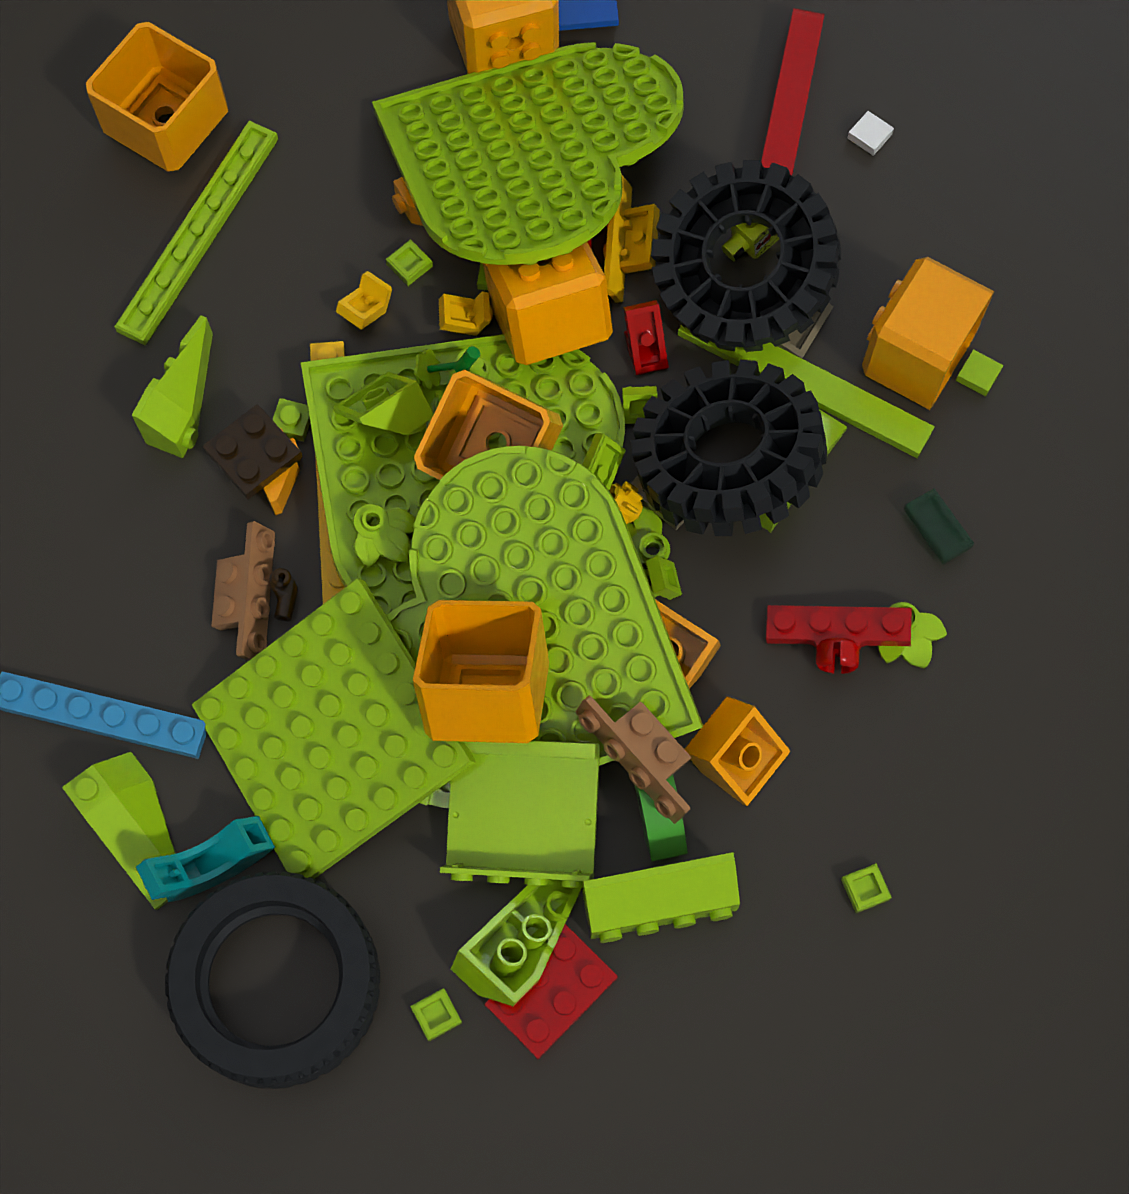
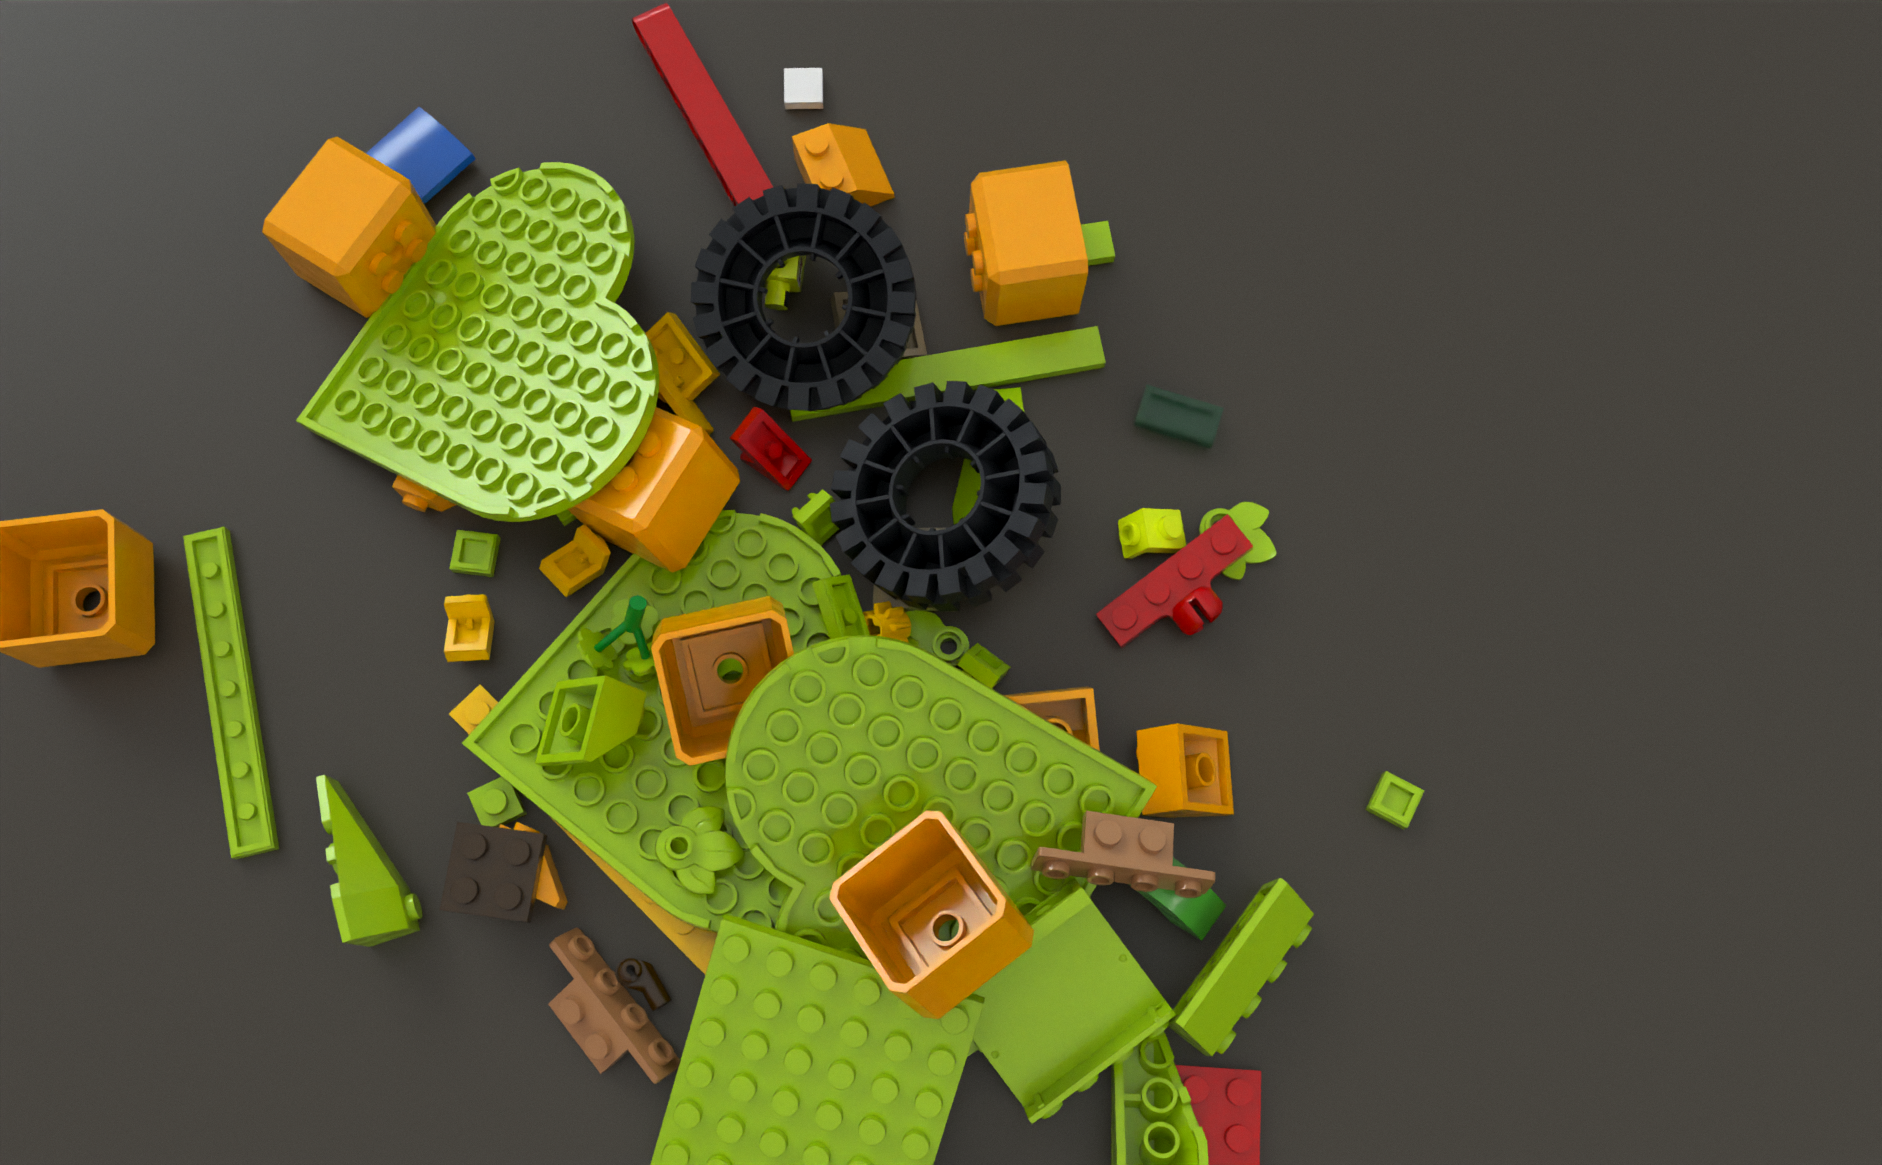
camera: 45 degrees left, 5 degrees up
(853, 198) = (842, 160): none -> light orange slope
(853, 583) = (1151, 532): none -> neon yellow bracket

